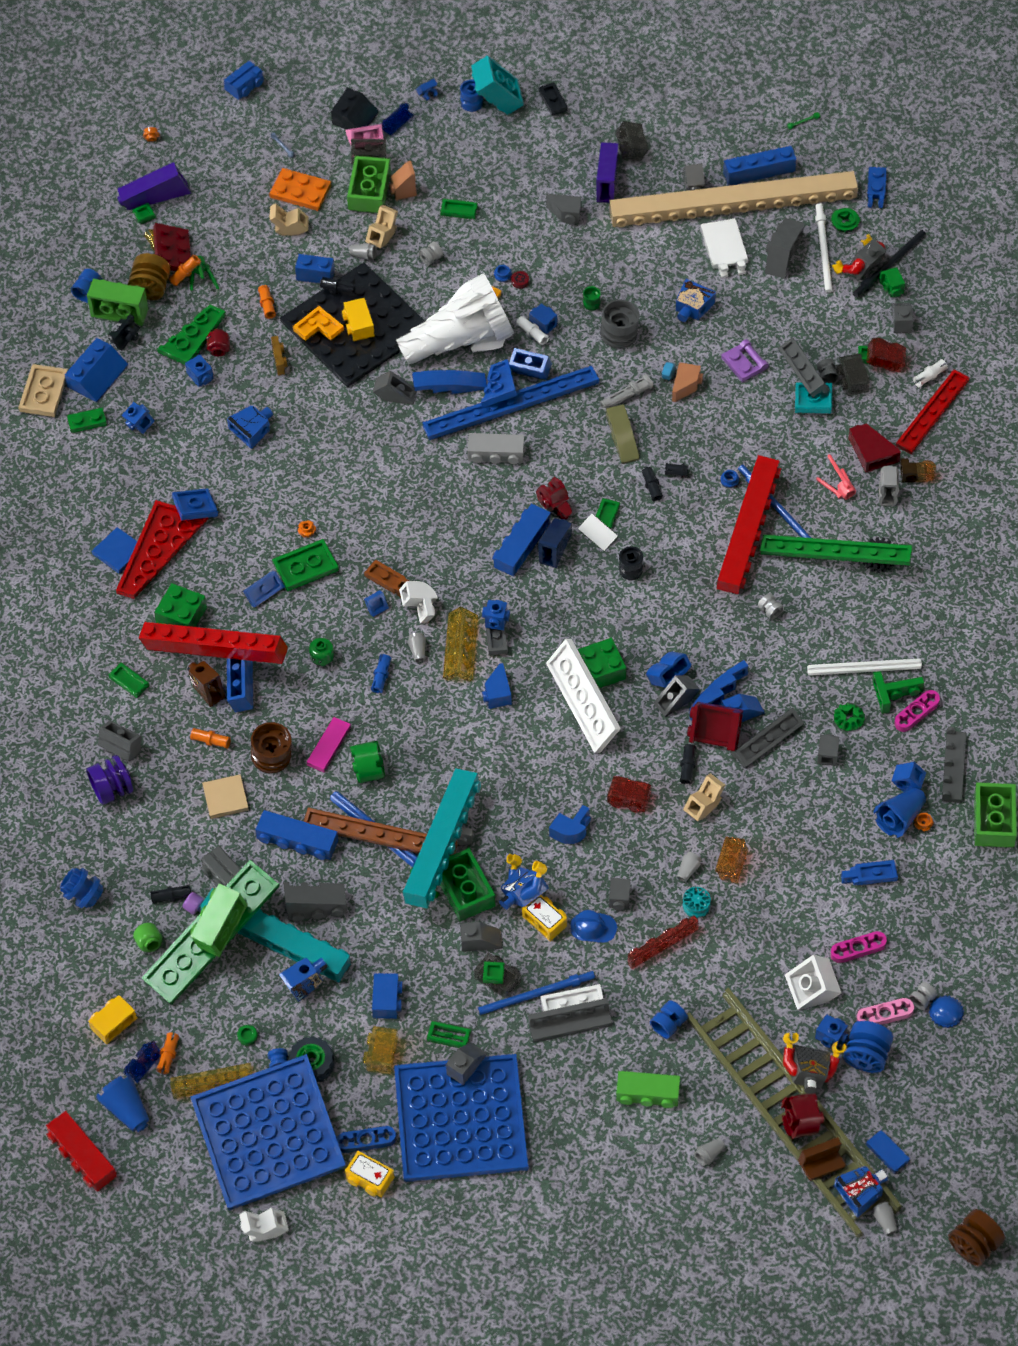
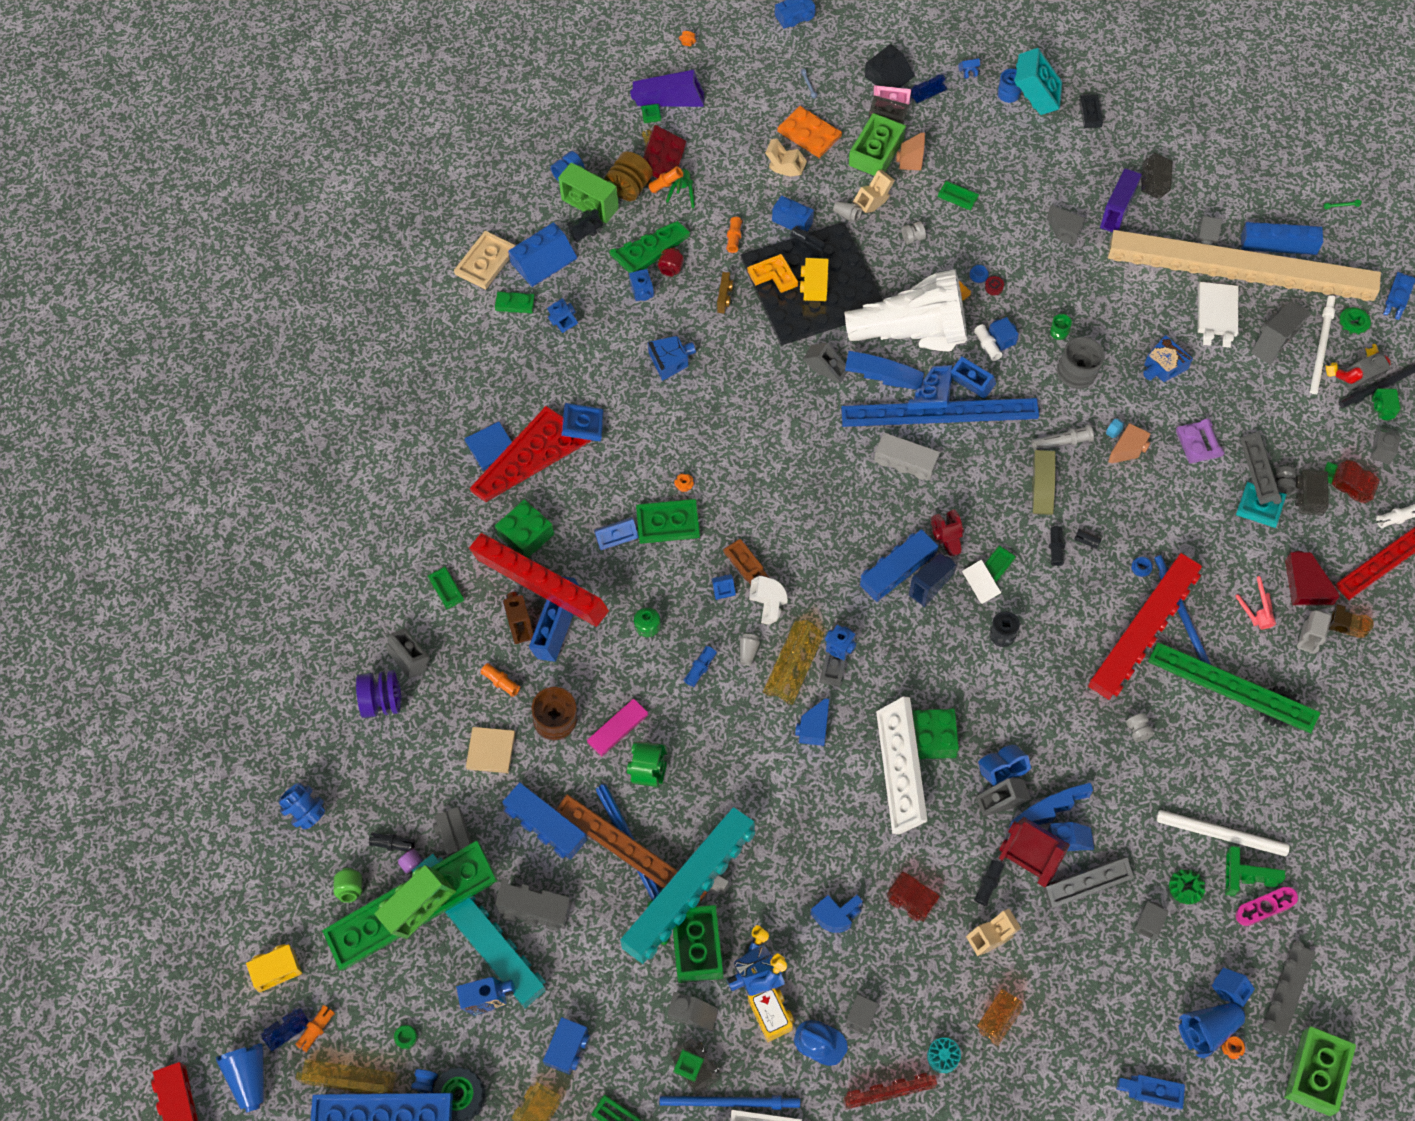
camera: 20 degrees right, 5 degrees up
(688, 866) = (949, 1007): light grey cone -> none

